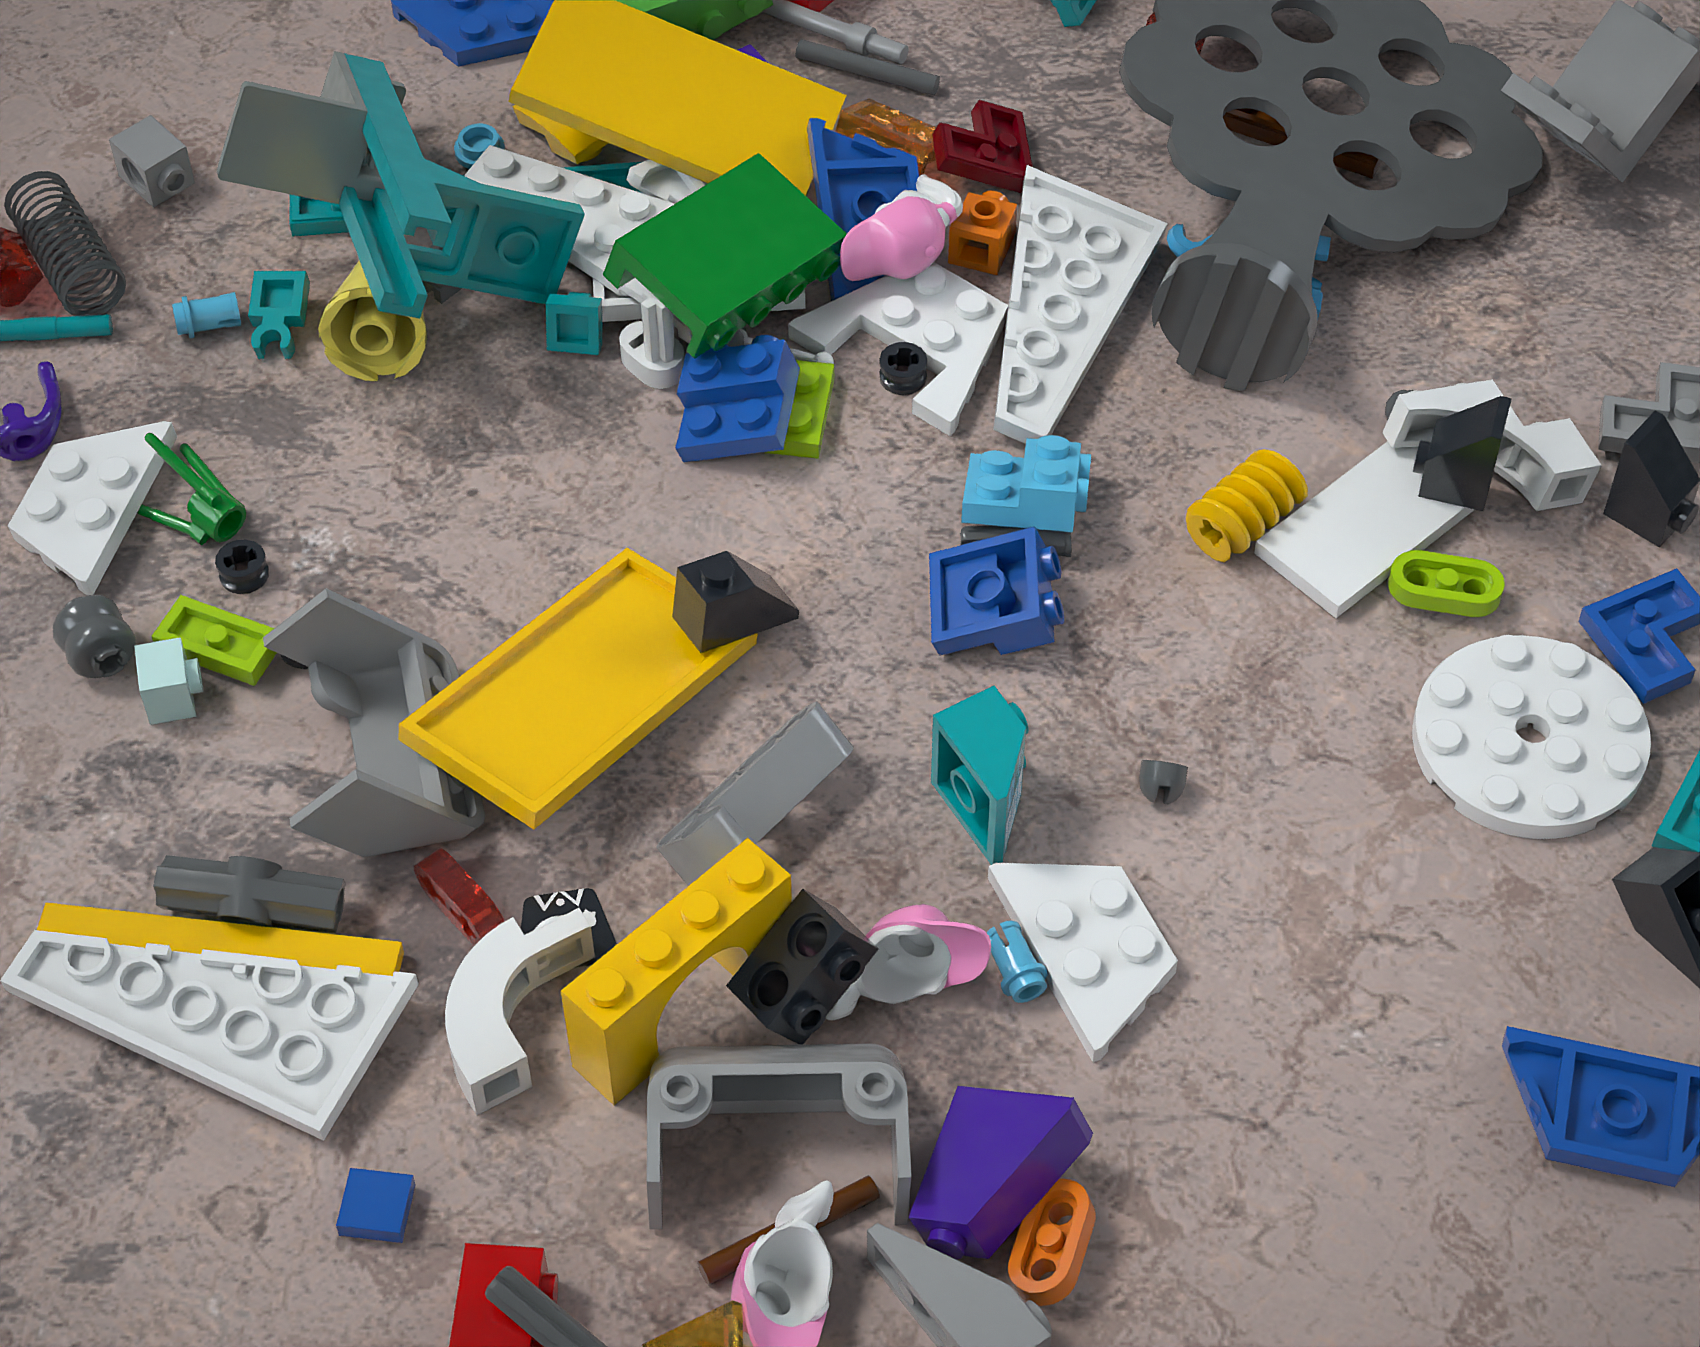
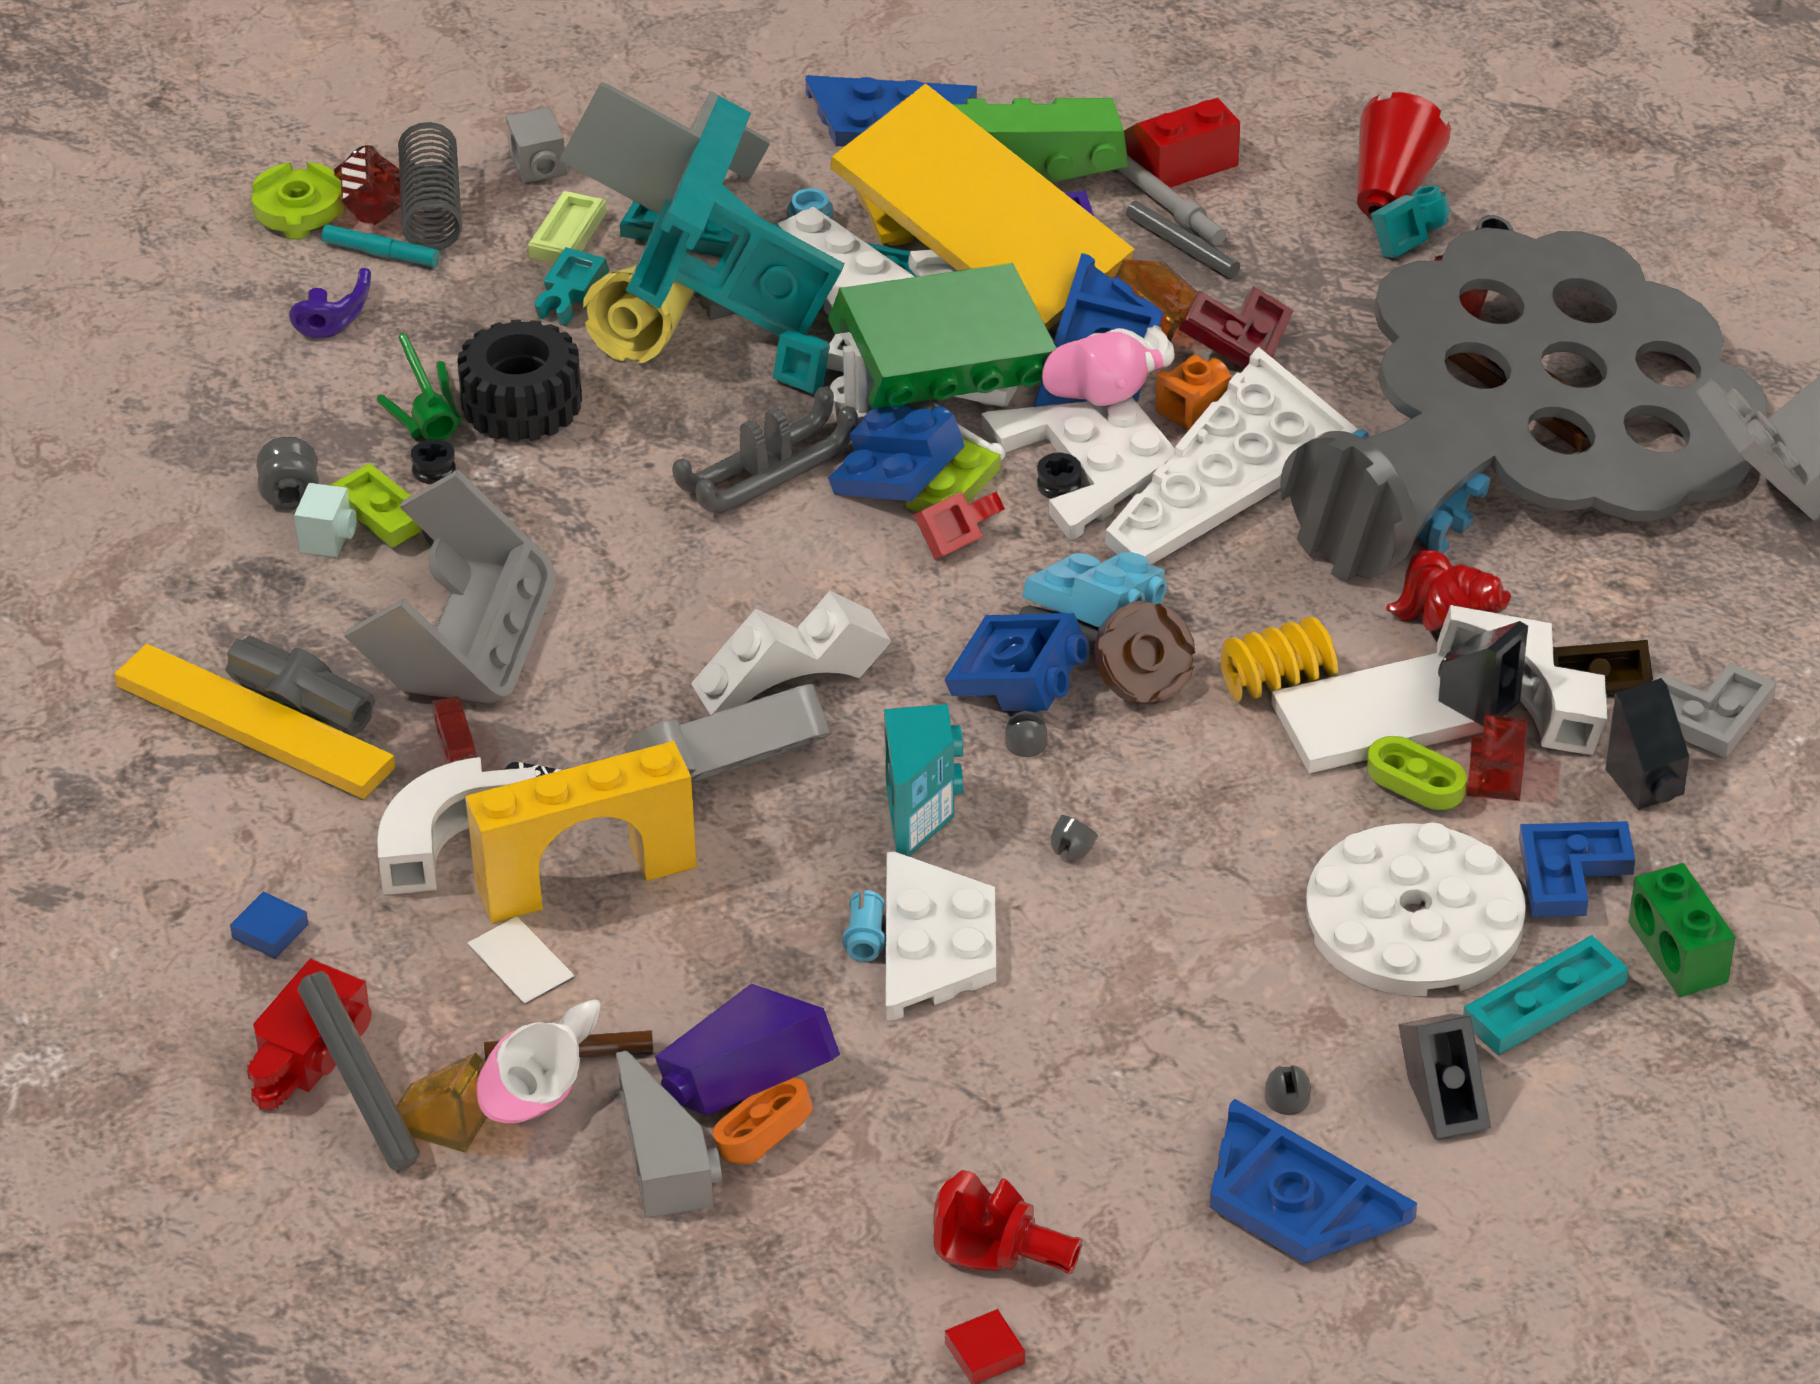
camera: 25 degrees right, 10 degrees down
(88, 500) = (343, 378): white wing -> none
(206, 314) = (513, 271): medium azure pin -> none
(233, 245) = (567, 225): none -> yellowish green tile
(236, 1022) = (234, 766): white wing -> none
(299, 473) = (520, 380): none -> black tyre
(568, 692) = (627, 616): yellow tile -> none
(600, 443) = (768, 455): none -> dark grey piece
(688, 1153) = (520, 959): none -> white sticker
(707, 1080) = (682, 962): light grey windscreen -> none
(727, 601) = (786, 584): black slope -> none
(750, 673) = (767, 651): none -> white arch
(802, 967) = (680, 862): black brick -> none
(834, 458) = (954, 521): none -> plate
(916, 957) = (770, 889): white hair -> none
(1047, 679) = (1026, 734): none -> dark grey hinge
(1118, 544) = (1144, 652): none -> reddish brown tile
(1366, 377) = (1435, 584): none -> red hair
(1371, 1280) = (994, 1229): none -> red piece
(1516, 538) = (1498, 759): none -> clear red brick
(1530, 995) = (1276, 1090): none -> dark grey hinge
(1553, 398) = (1622, 663): none -> dark brown slope

